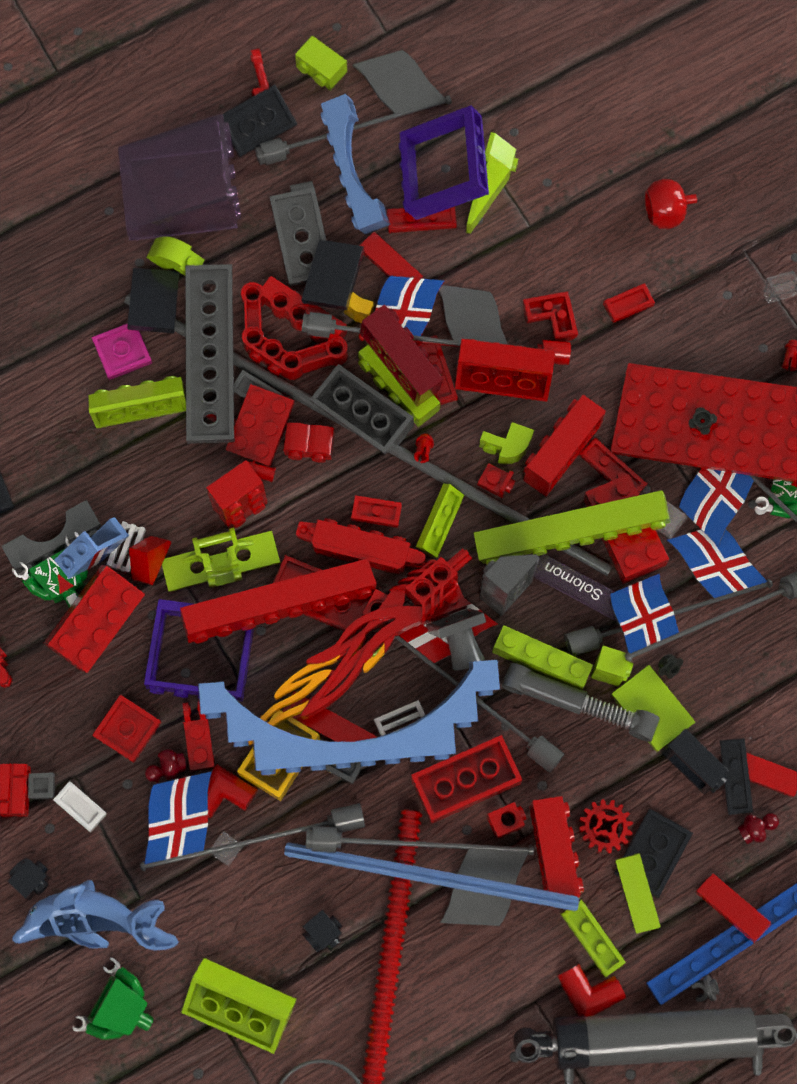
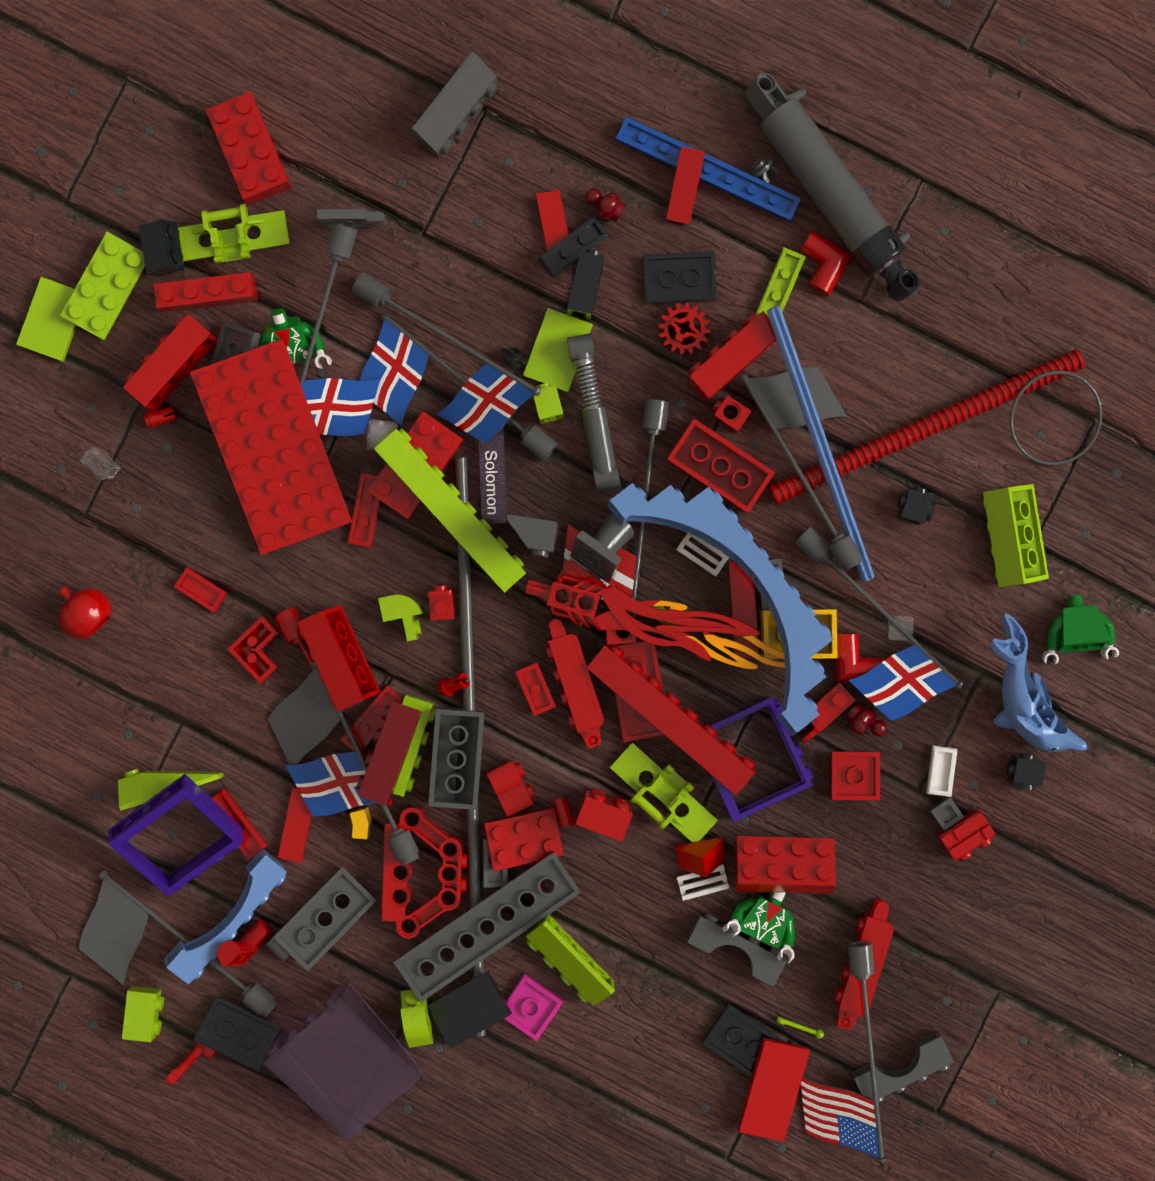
camera: 125 degrees left, 15 degrees up
(89, 552) = (729, 907): medium blue panel -> none
(319, 165) = (239, 952): none -> red brick
(333, 275) = (346, 865): black tile -> none
(440, 520) = (509, 629): lime plate -> none
(542, 658) = (576, 466): lime brick -> none
(564, 444) = (376, 563): red brick -> none
(638, 893) = (722, 270): lime tile -> none
(701, 414) = (284, 450): pearl dark grey plate -> none

